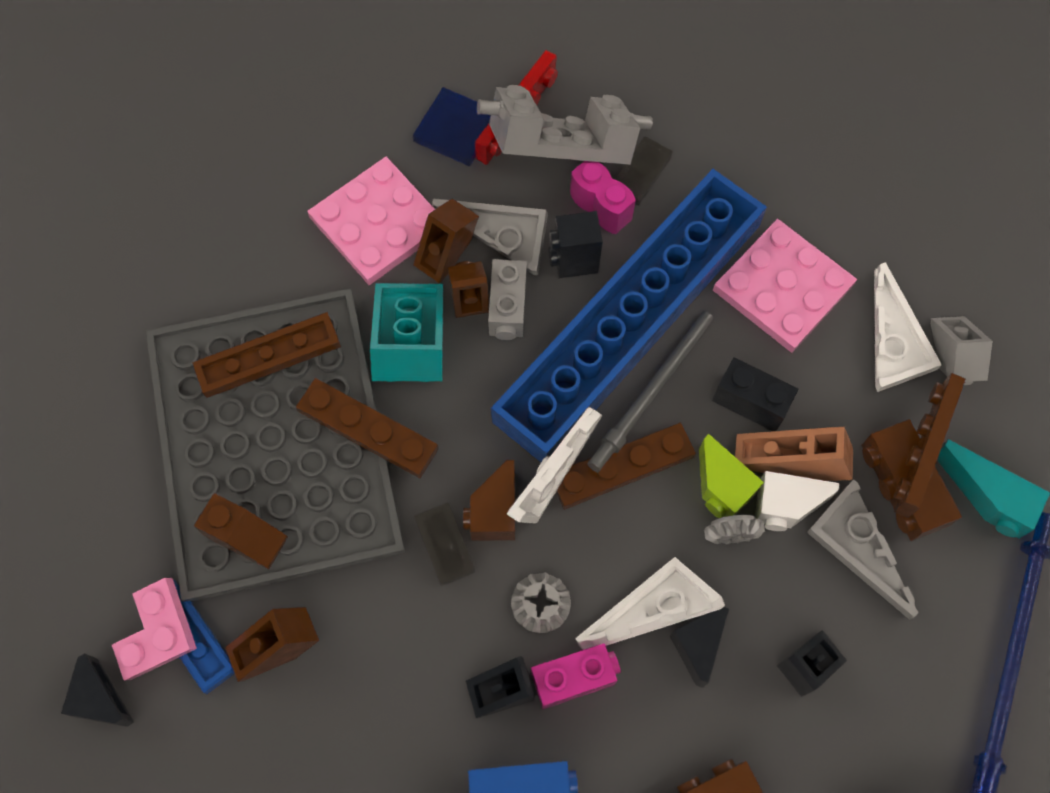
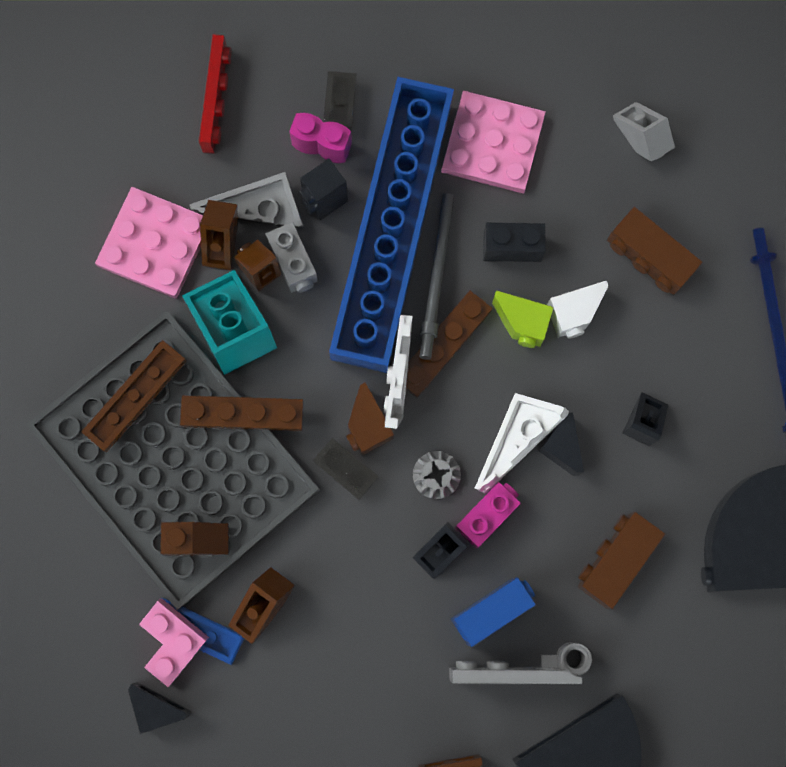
camera: 30 degrees left, 10 degrees up
(452, 126) = (172, 133): clear blue tile -> none
(604, 136) = (297, 89): light grey brick -> none
(734, 529) = (548, 352): light grey gear -> none
(805, 453) = (565, 272): nougat slope -> none
(854, 539) = (632, 314): light grey wing -> none
(900, 342) = (598, 145): white wing -> none
(923, 457) = (658, 231): reddish brown plate -> none
(995, 492) = (717, 230): teal slope -> none

